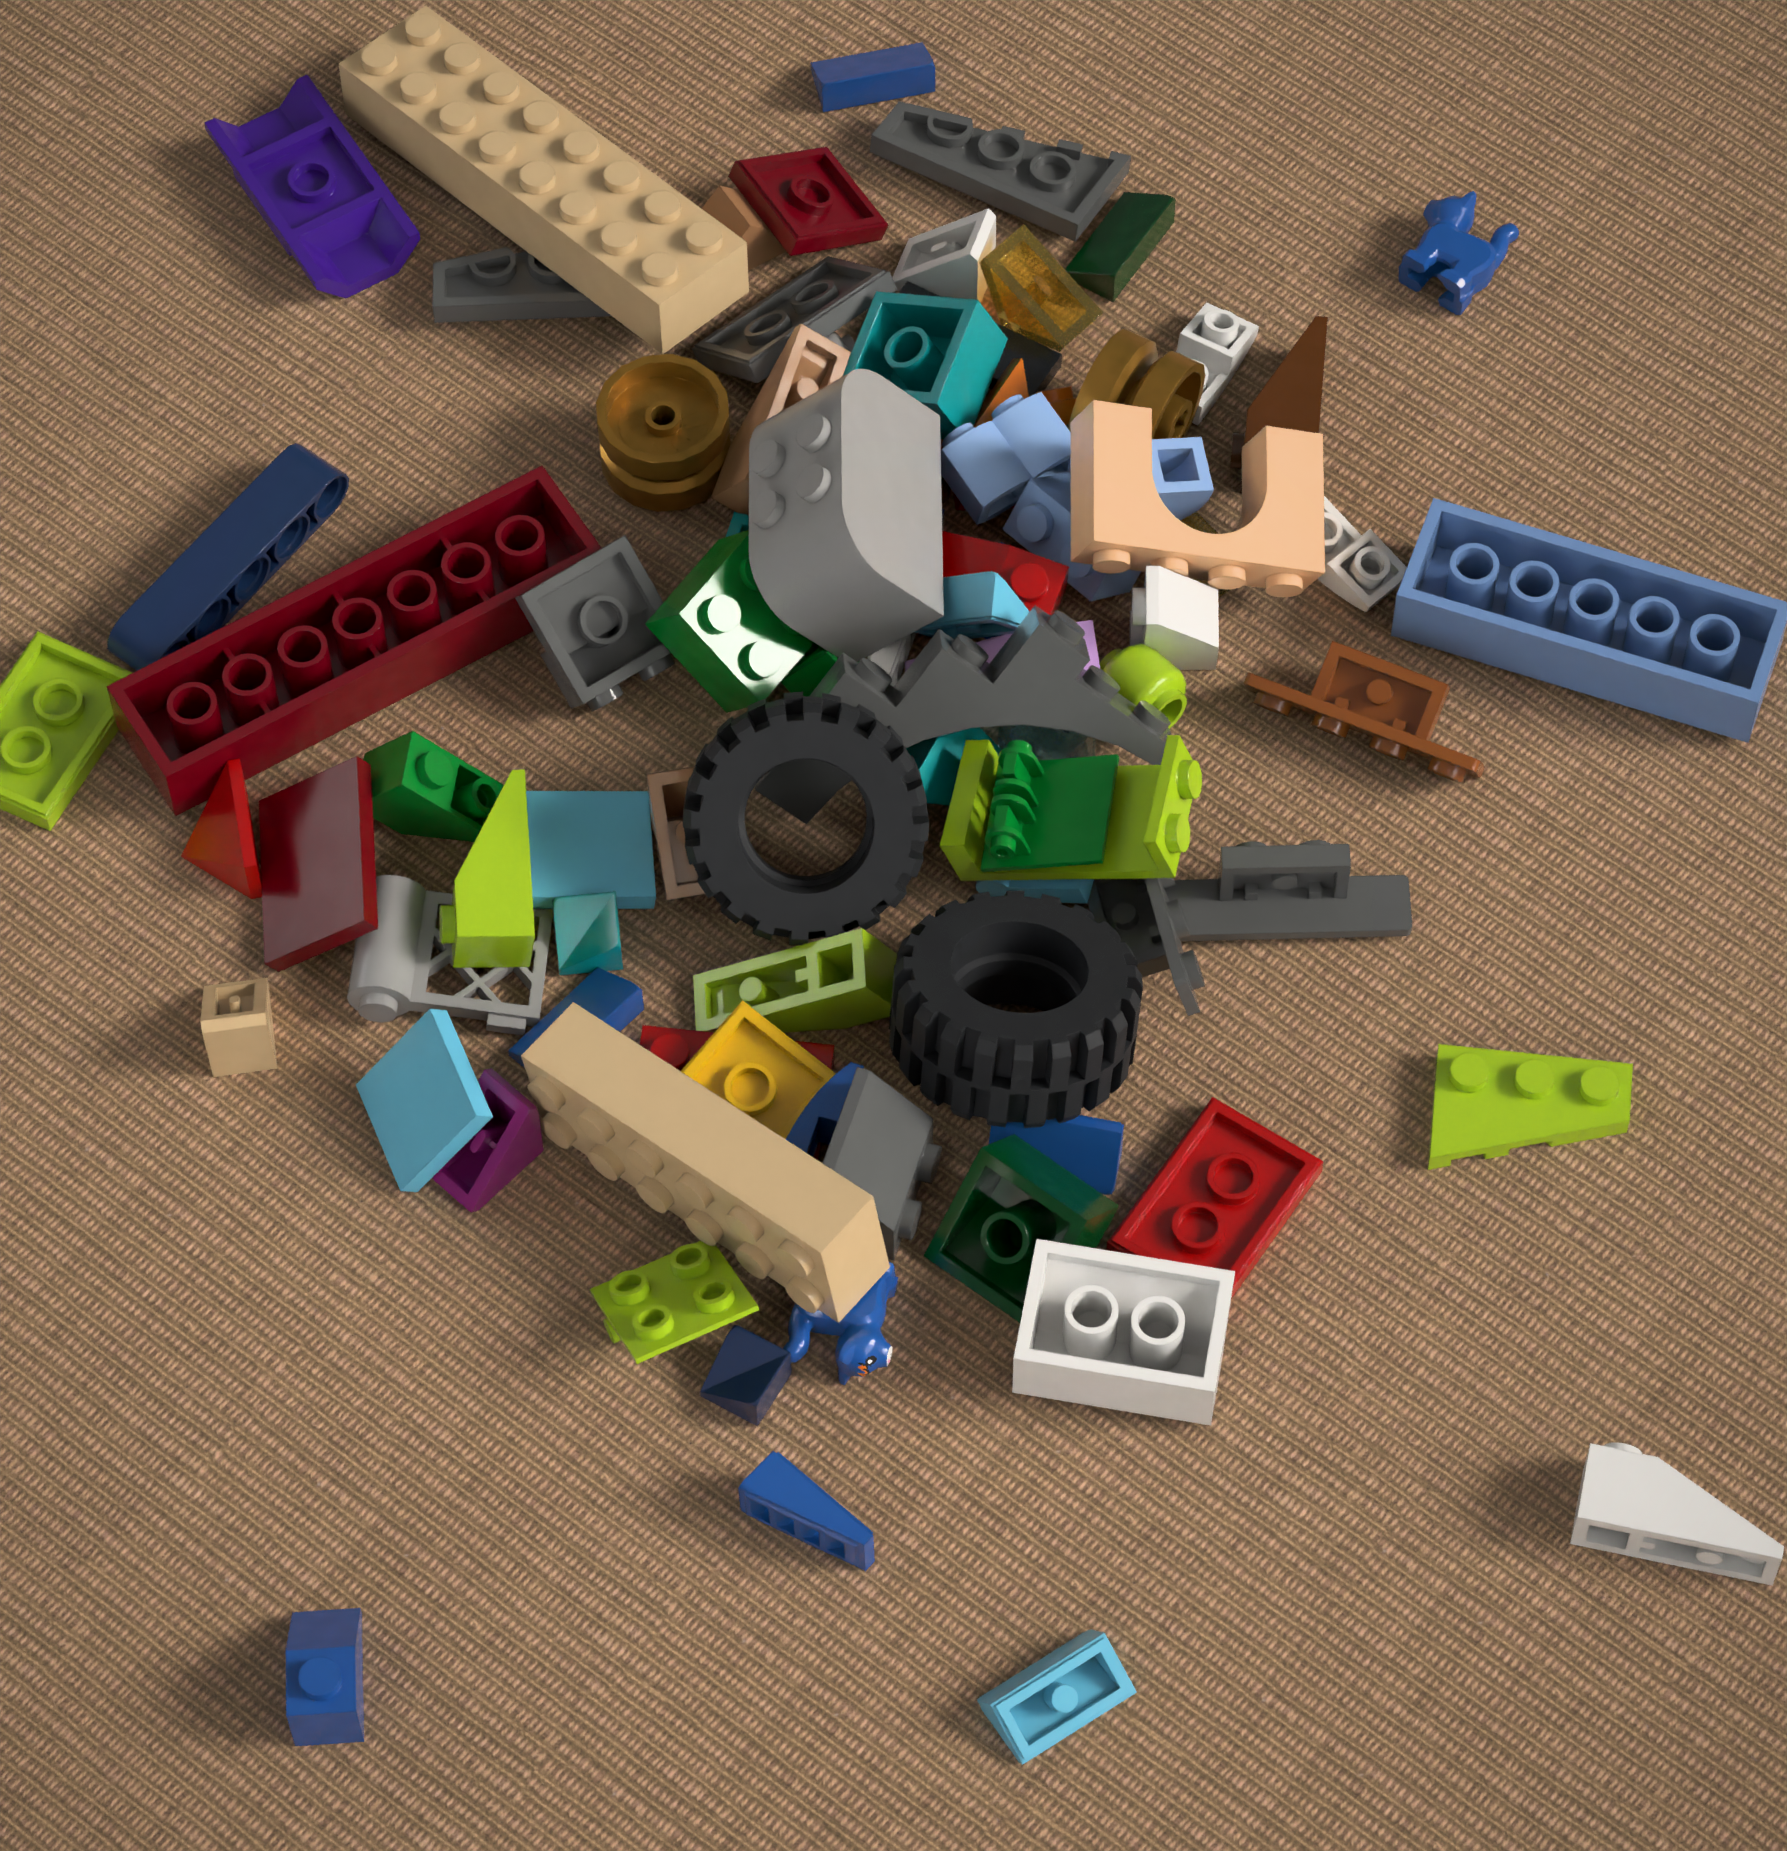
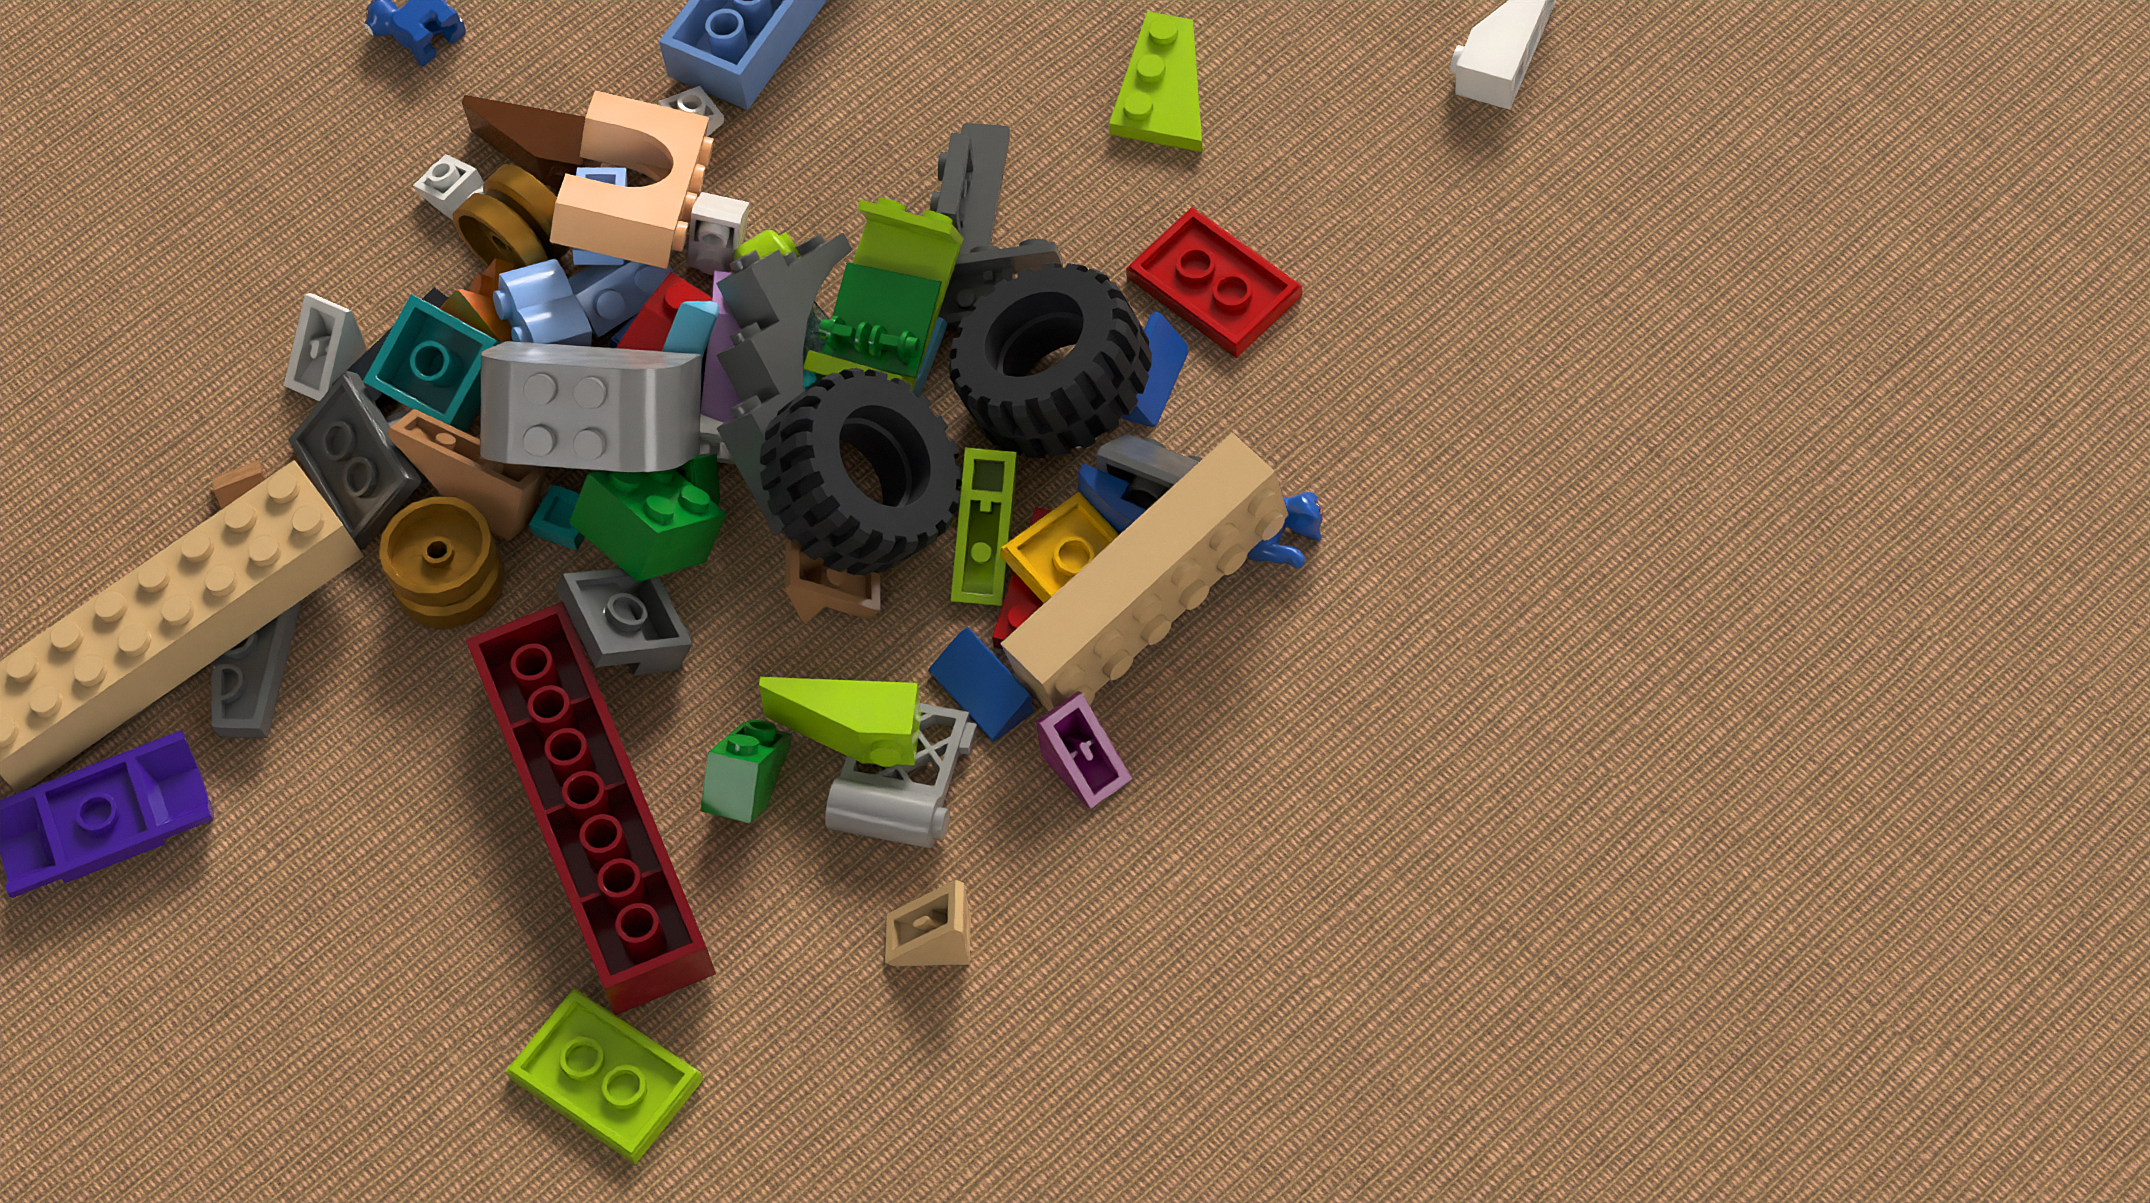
camera: 75 degrees left, 0 degrees up
(225, 835) = (749, 926): red slope -> none
(231, 558) = (478, 911): dark blue beam -> none
(318, 864) = (799, 853): dark red tile -> none
(325, 1677) = (1525, 901): blue slope -> none
(424, 1100) = (1042, 786): medium azure tile -> none
(587, 933) = (902, 661): teal slope -> none
(591, 846) = (824, 647): medium azure tile -> none
(672, 1300) = (1252, 625): lime hinge -> none
(747, 1375) = (1311, 593): dark blue slope -> none
(798, 1507) = (1428, 565): blue slope -> none
(808, 200) = (233, 442): dark red tile -> none
(874, 76) = (111, 390): blue slope -> none
(1001, 1211) = (1218, 392): dark green slope -> none
(1026, 178) = (249, 296): dark grey wing -> none
(1036, 292) = (382, 286): clear yellow slope -> none
(1057, 1695) = (1590, 426): medium azure slope -> none
(1122, 242) = (335, 236): dark green slope -> none
(1122, 1332) = (1323, 334): white slope -> none
(1375, 700) = (809, 118): dark orange bracket -> none

